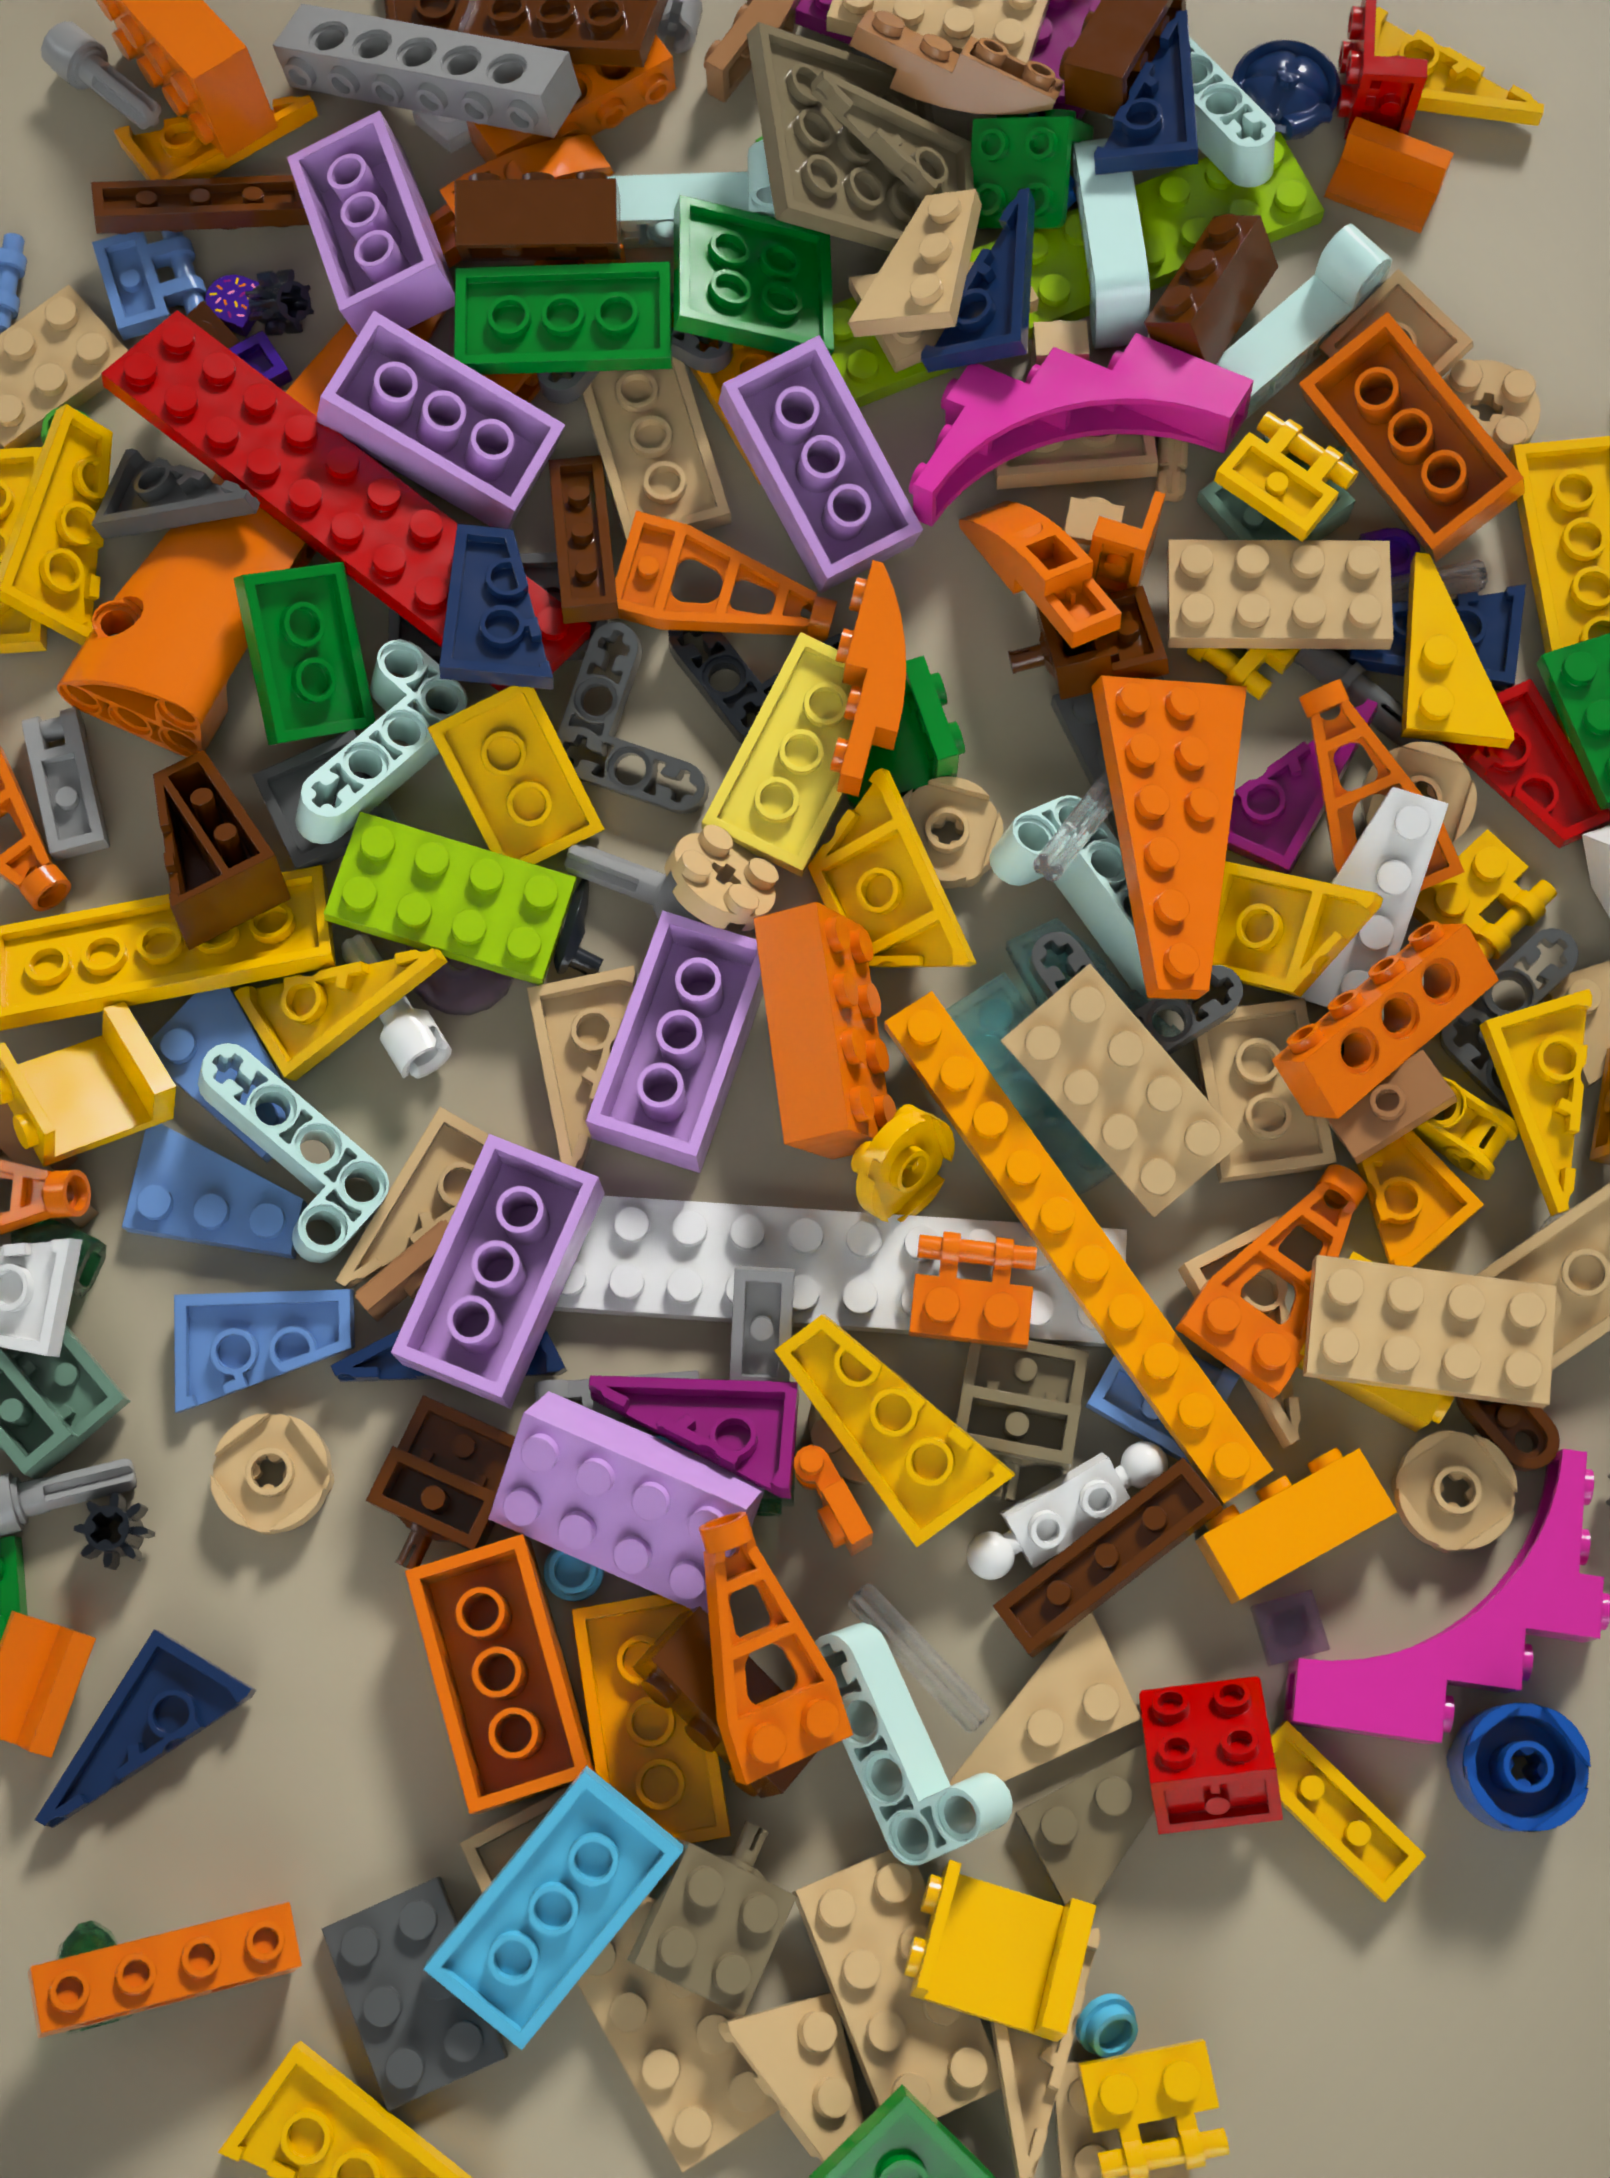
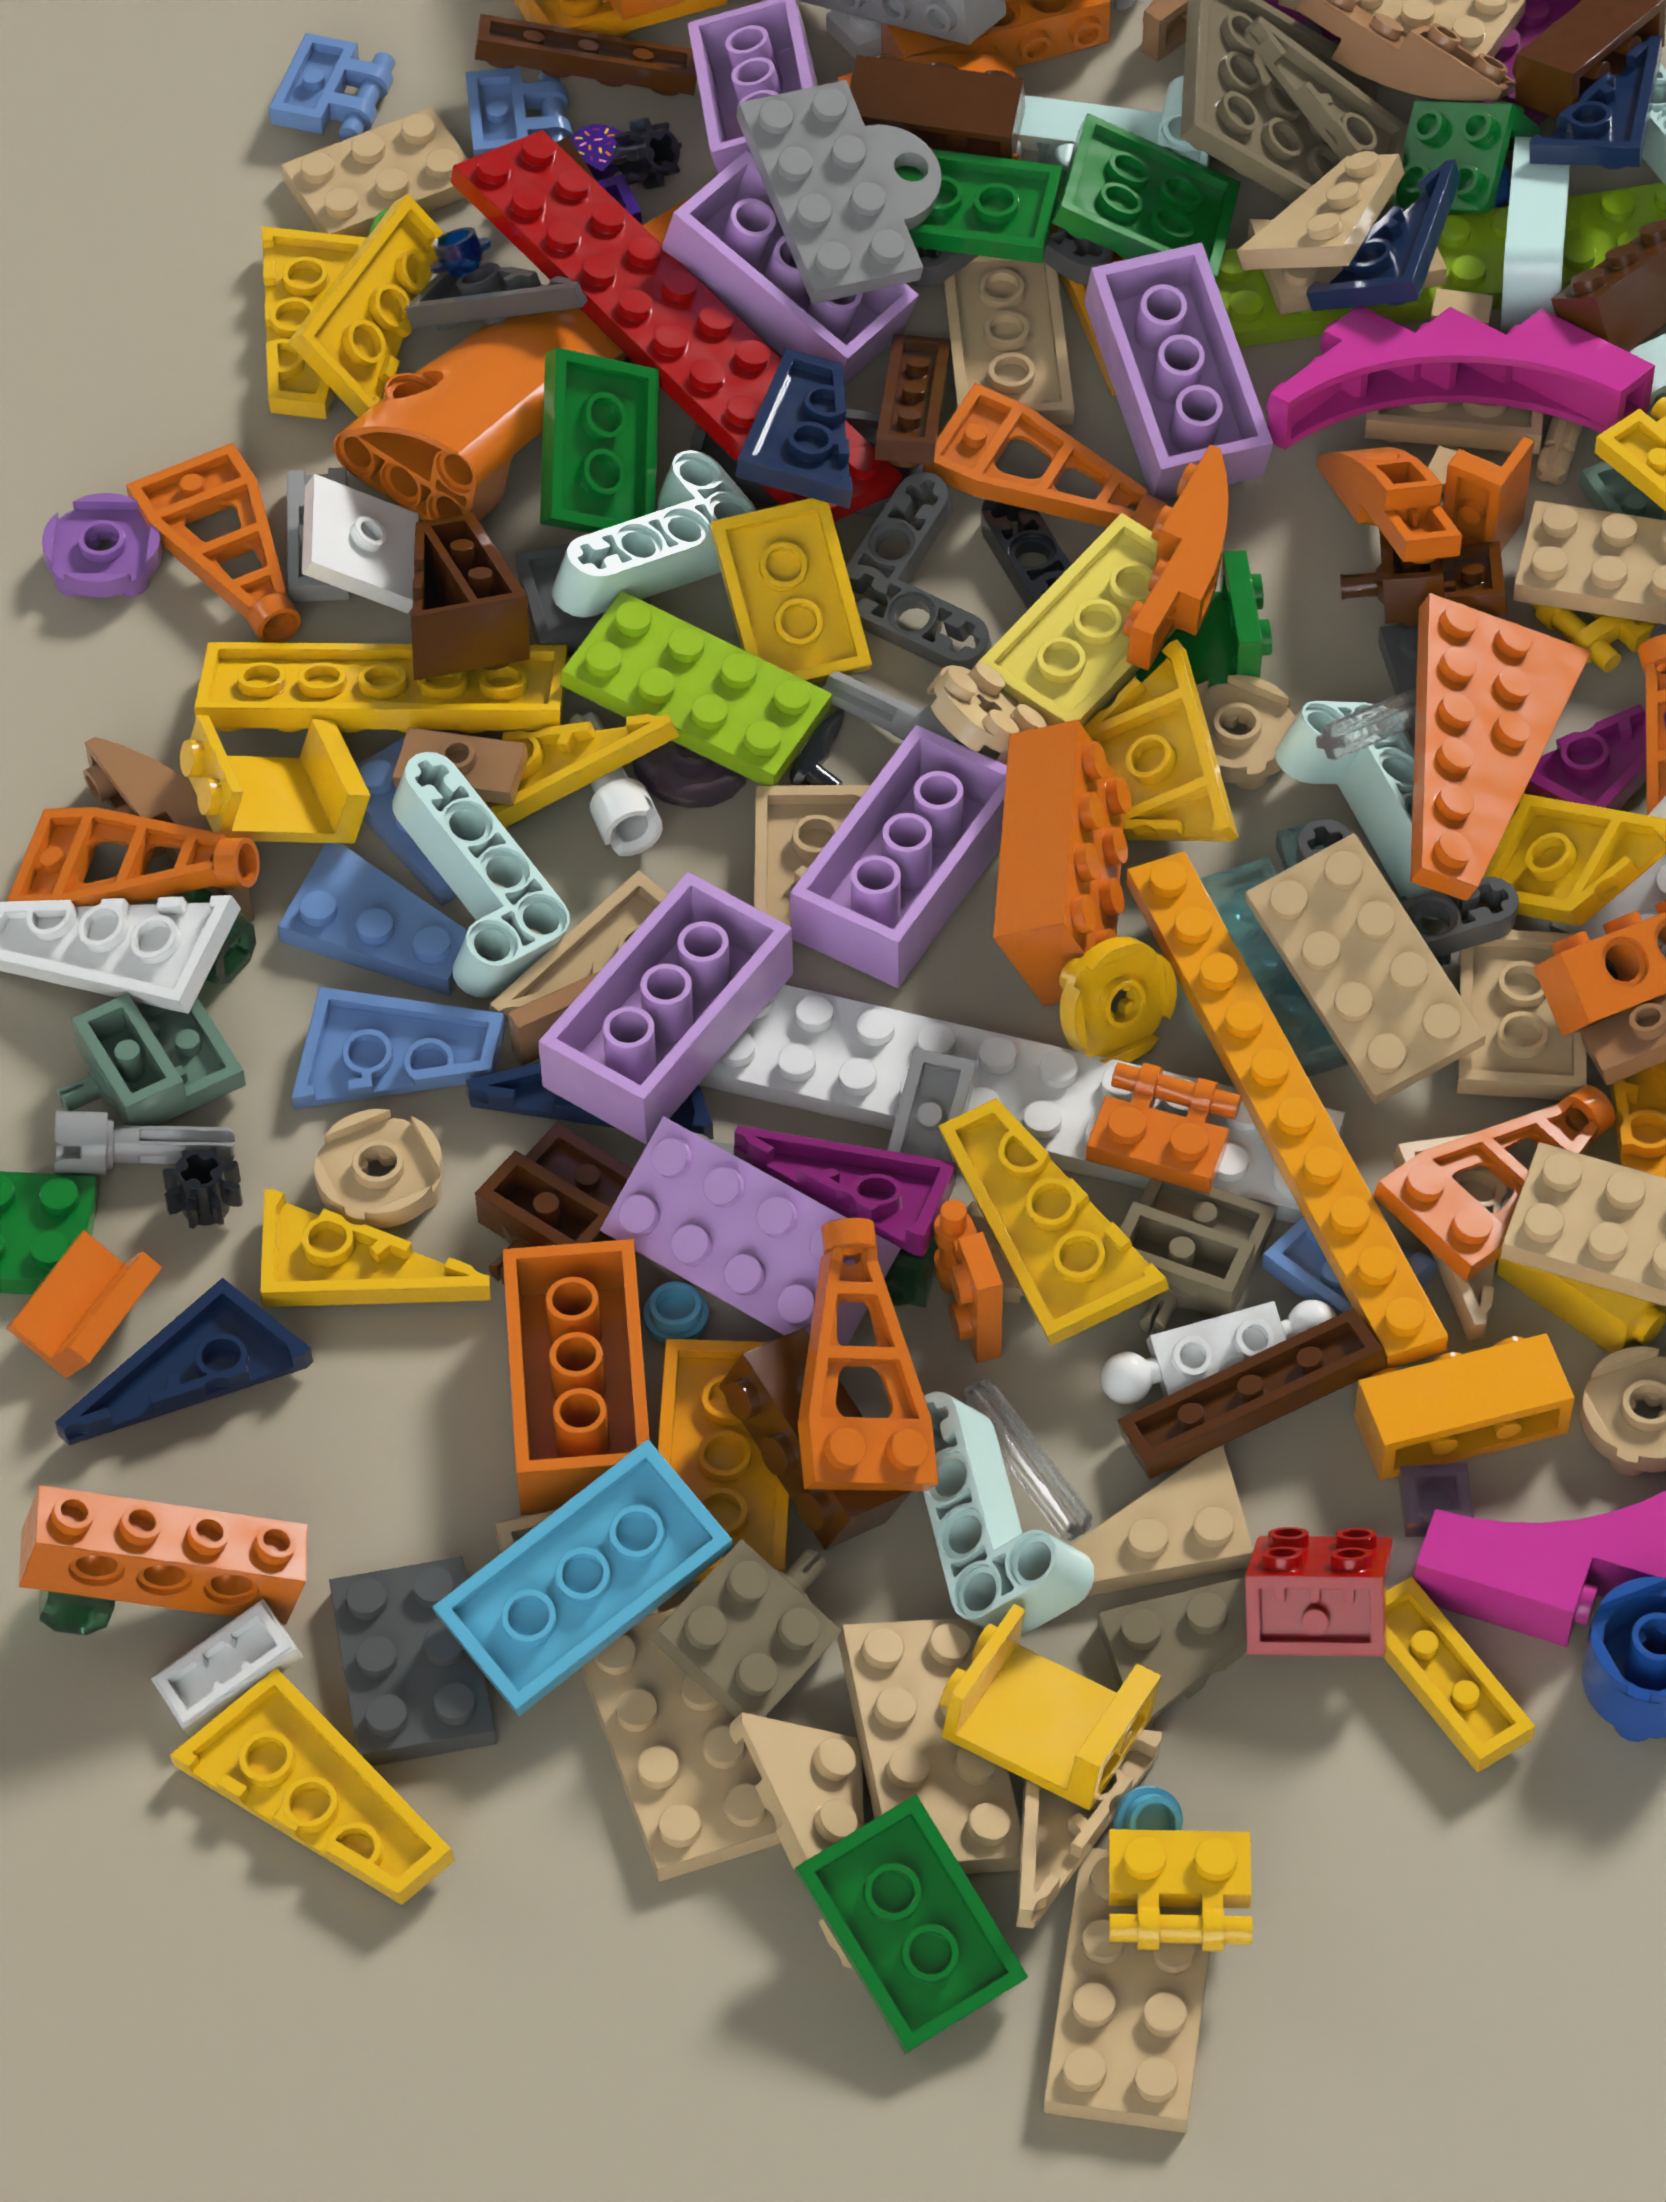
camera: 10 degrees right, 20 degrees down
(103, 793) = (359, 543): none -> white plate
(128, 453) = (459, 252): none -> clear blue plate
(249, 2045) = (225, 1666): none -> white plate
(250, 1582) = (336, 1262): none -> yellow wing
(259, 1025) = (487, 764): none -> medium nougat plate
(469, 335) = (840, 189): none -> light grey plate

